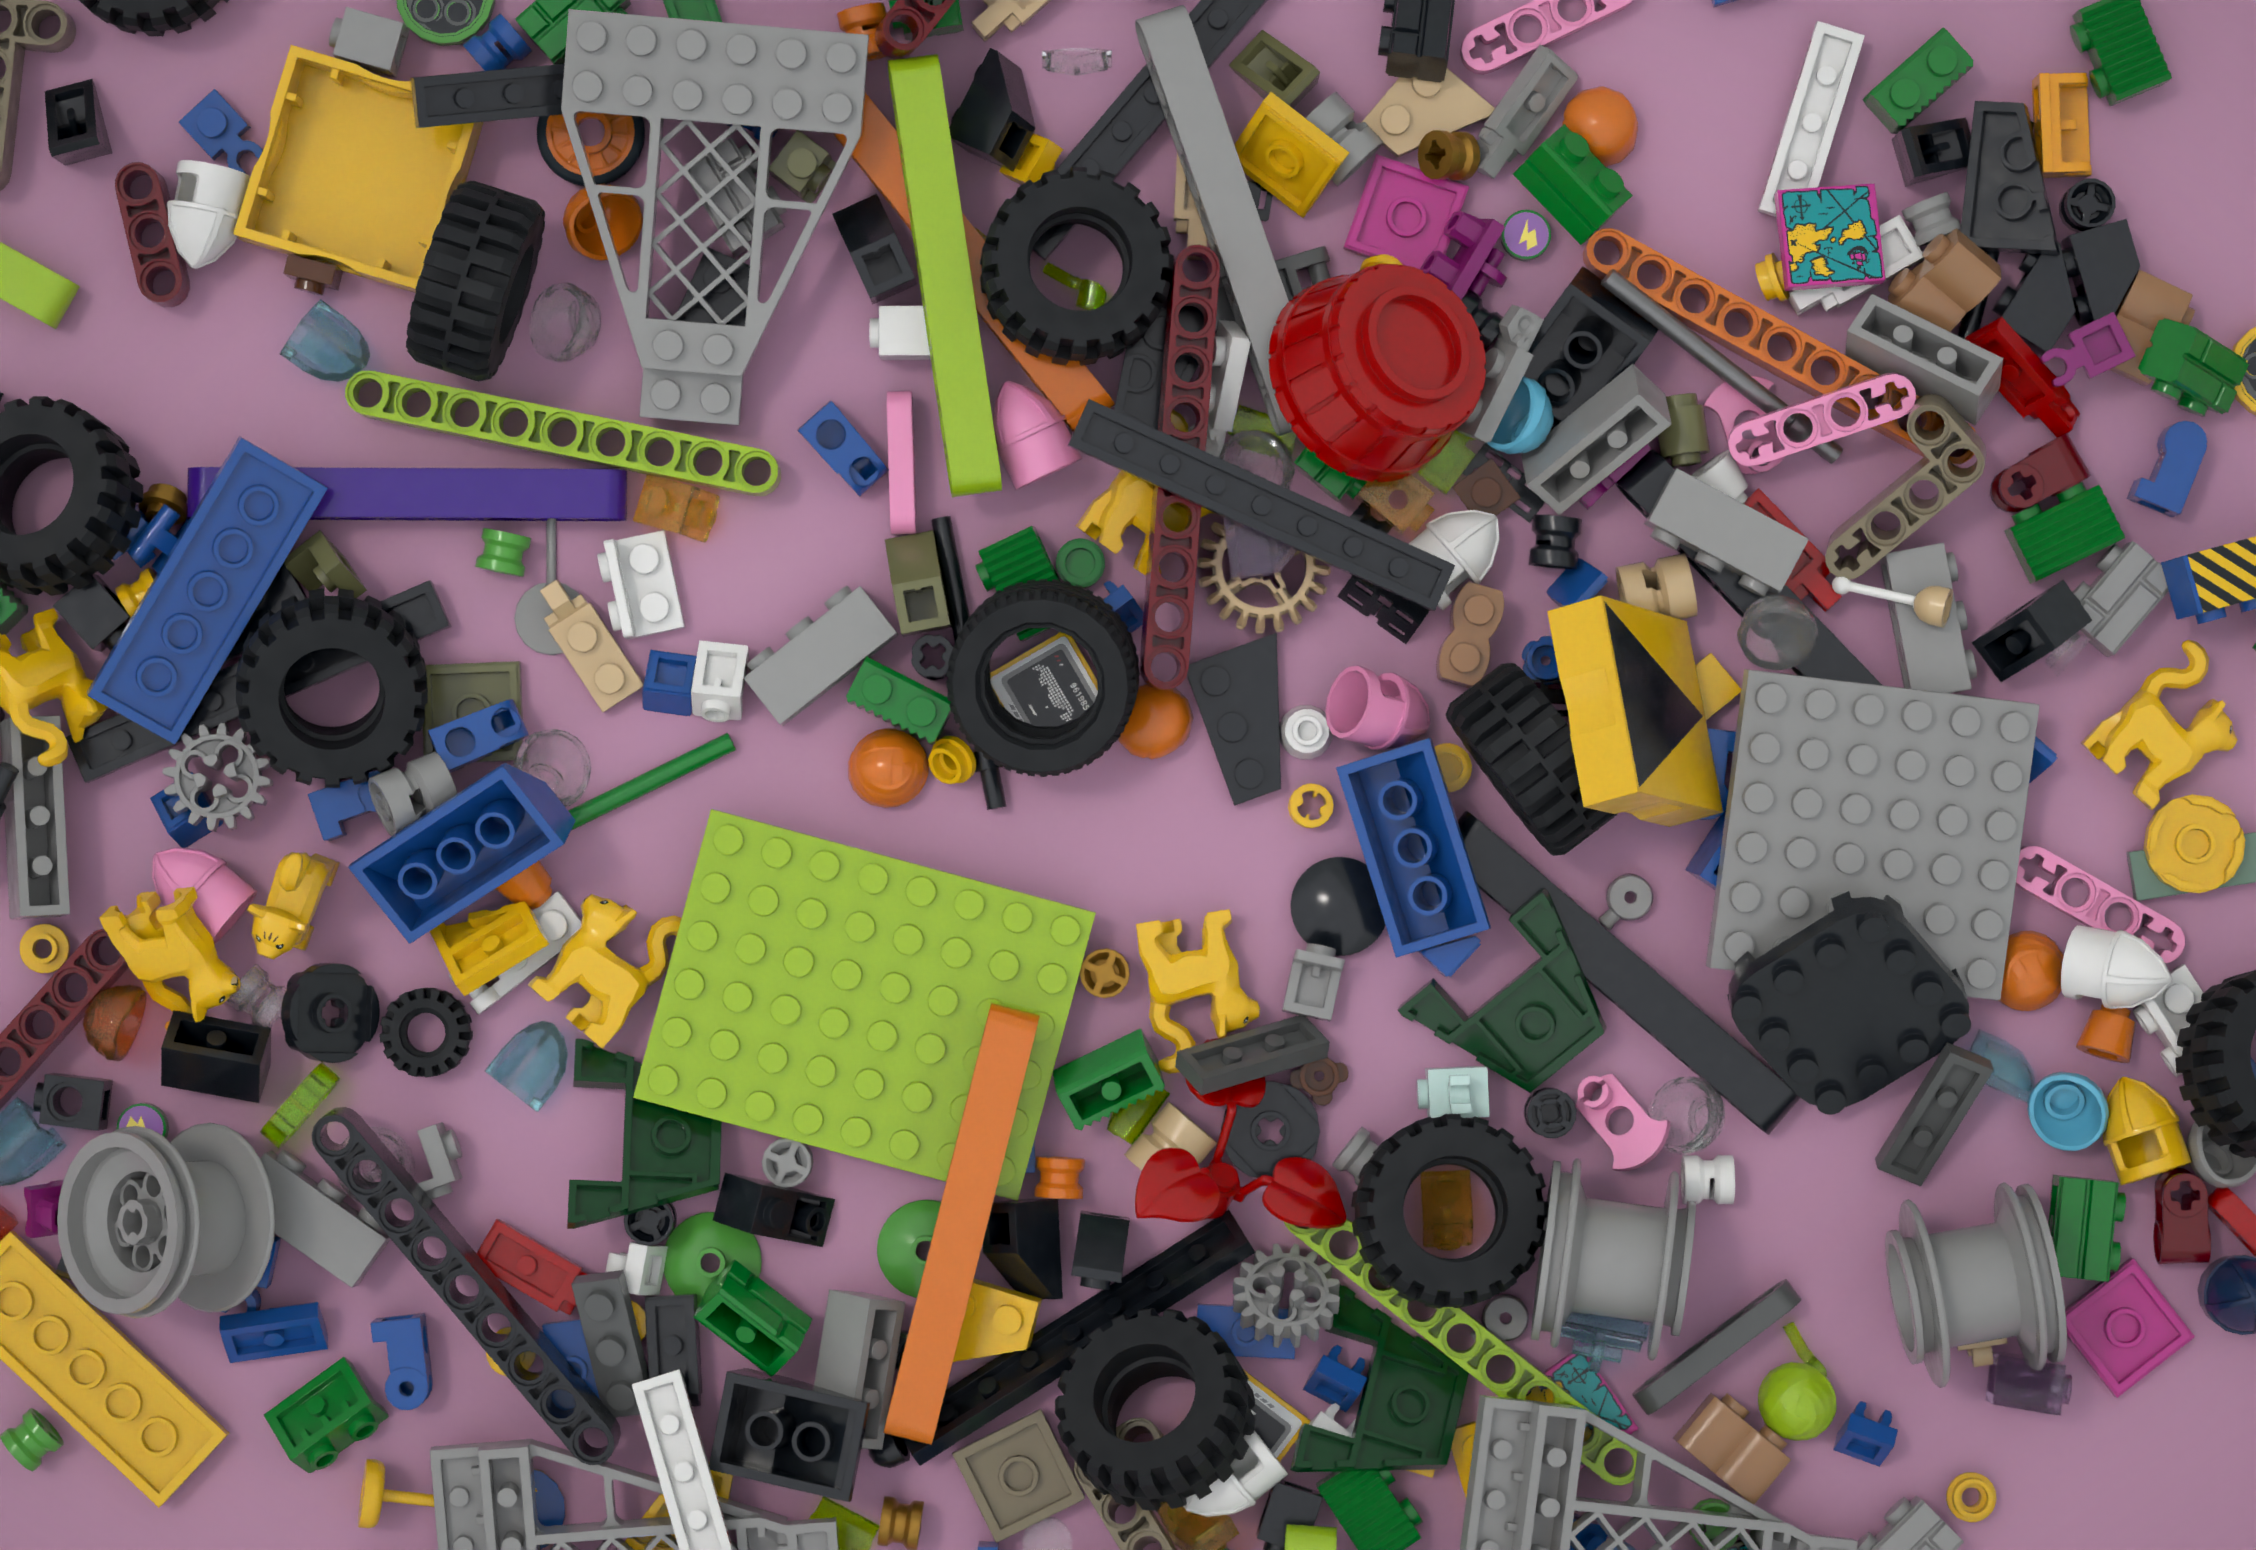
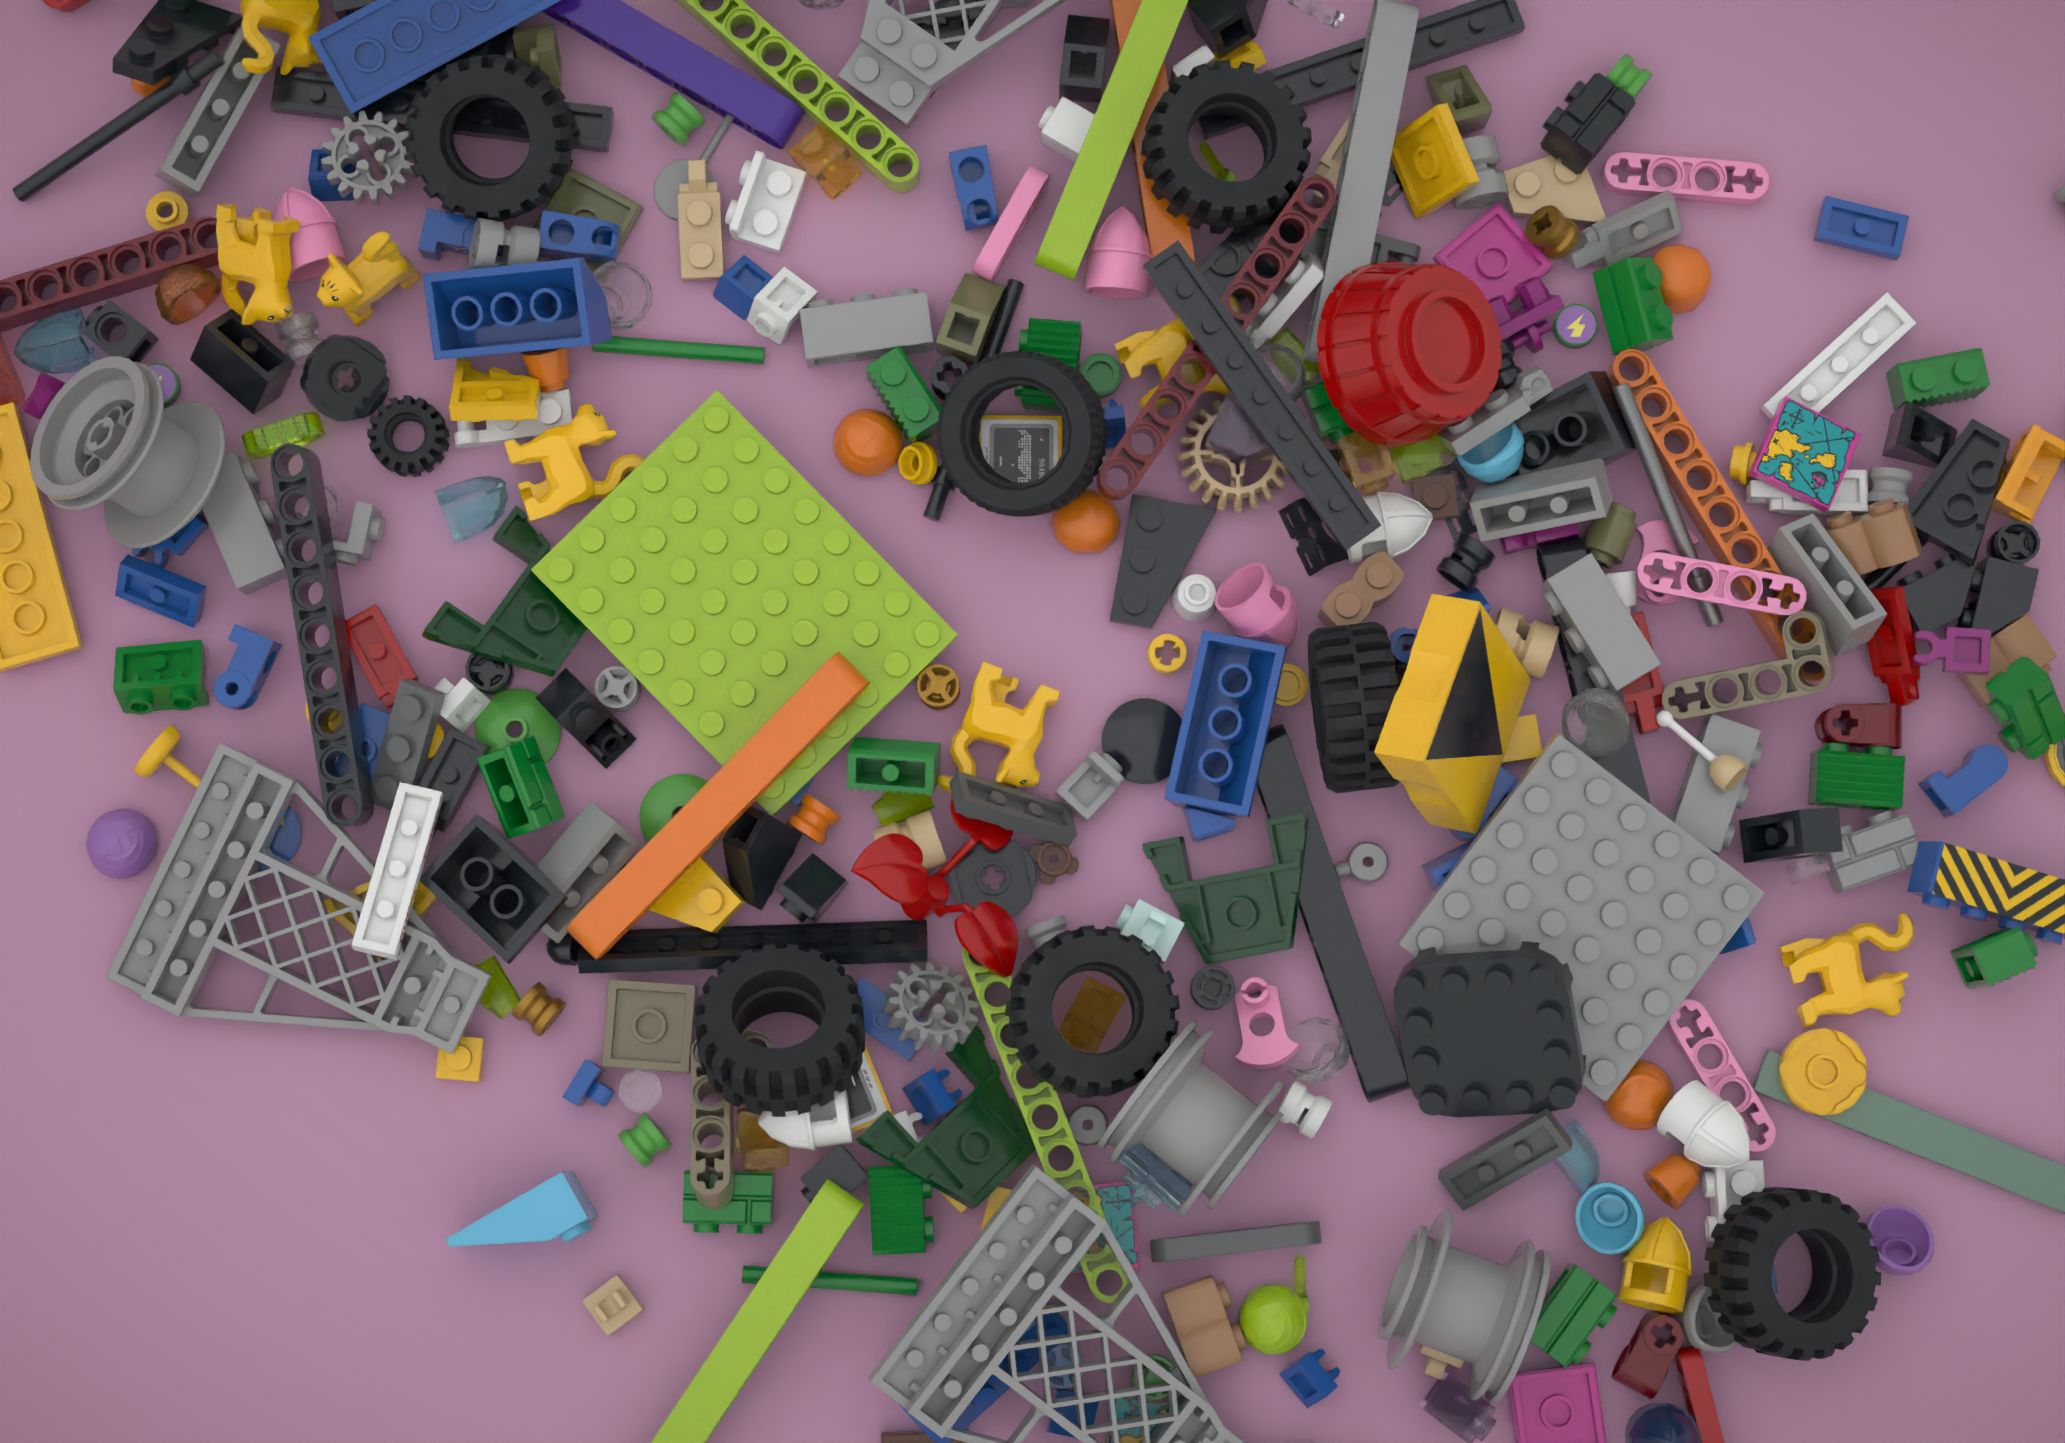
camera: 30 degrees right, 5 degrees down
(990, 196) = (1198, 57): none -> white tile

